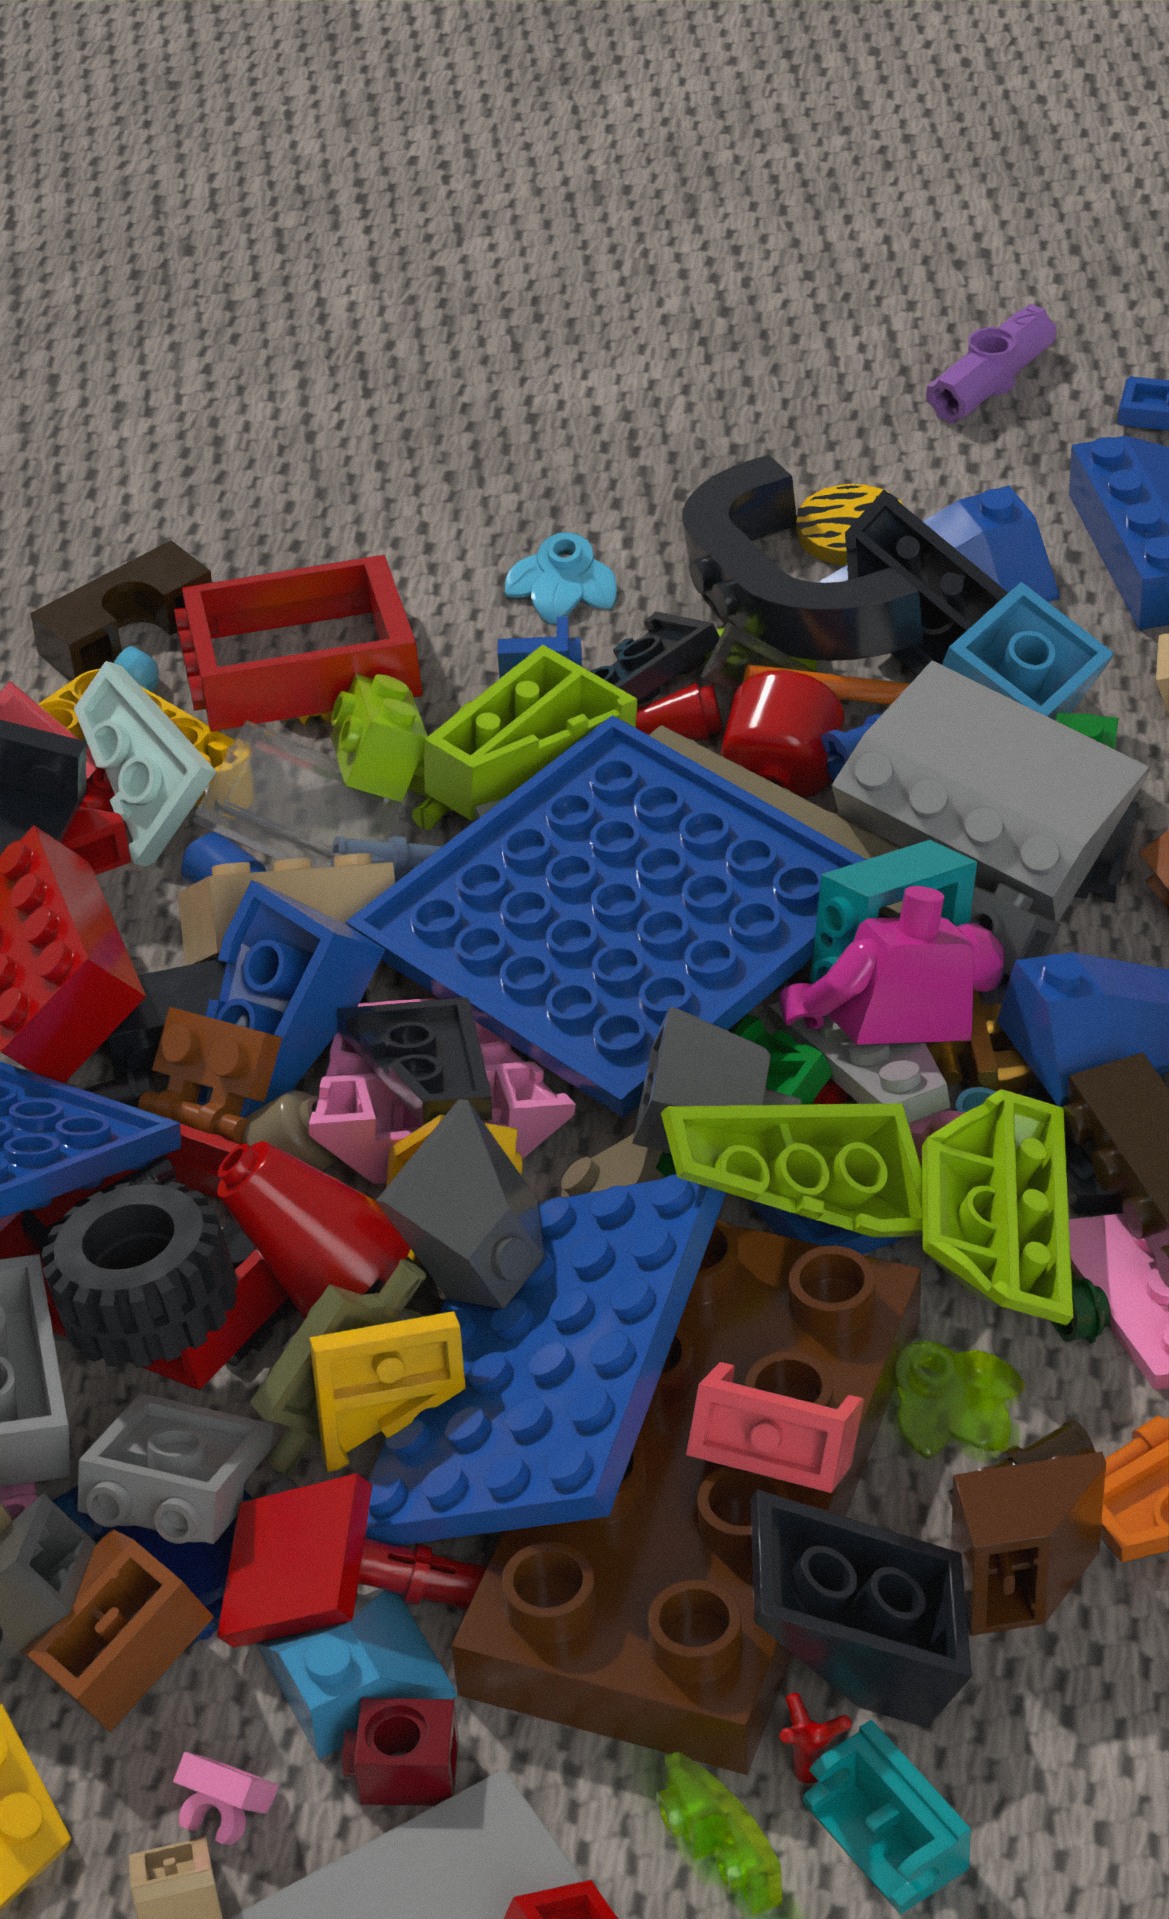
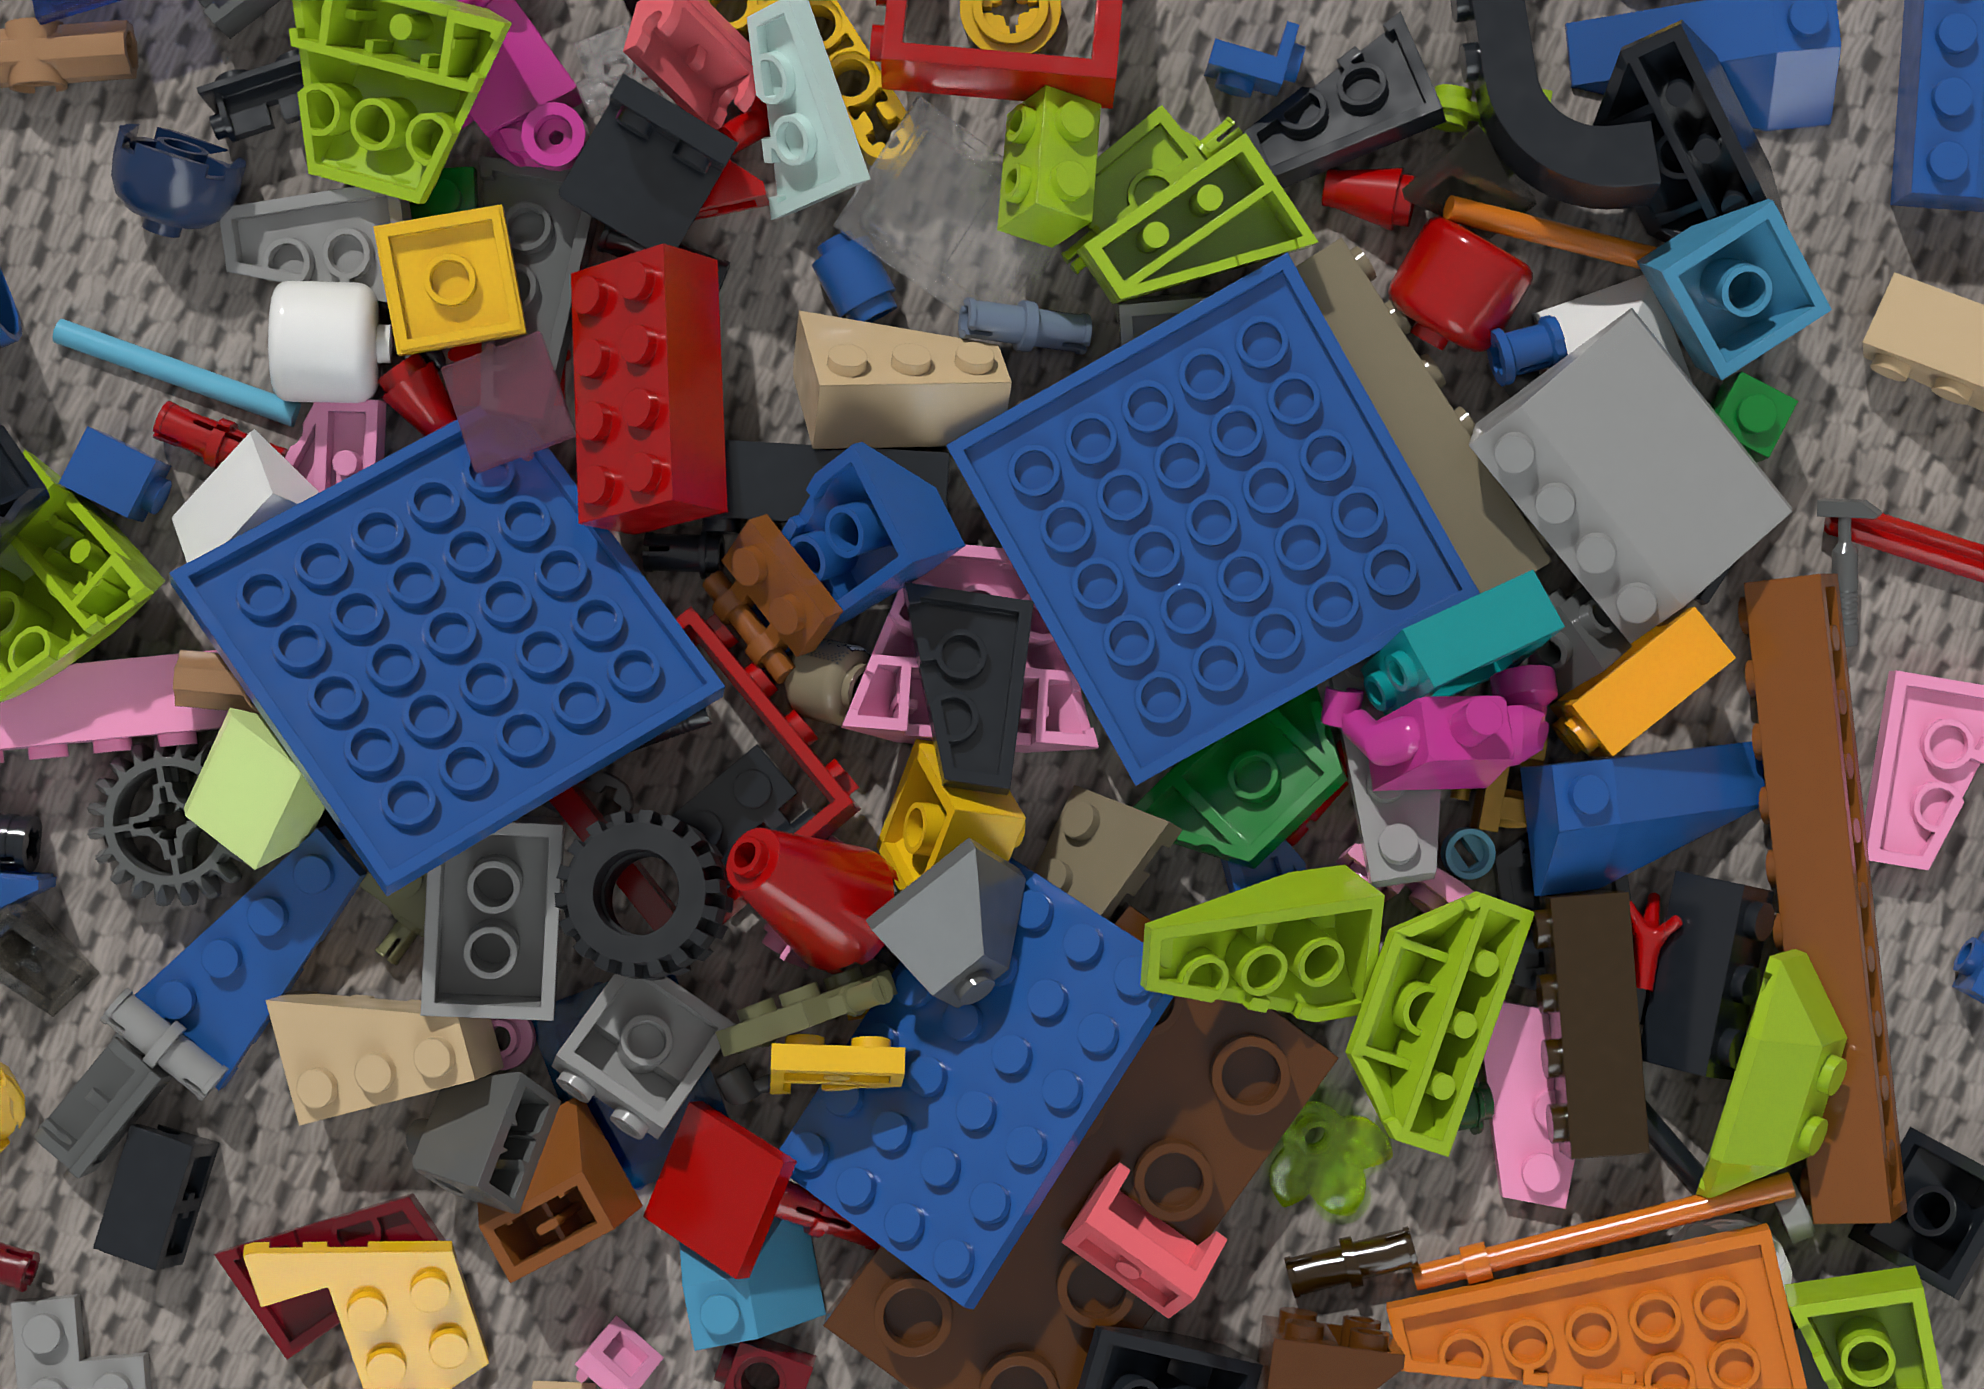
camera: 15 degrees right, 45 degrees up
(700, 1067) = (1211, 825): dark grey torso -> none
(1088, 904) = (1641, 685): none -> light orange window

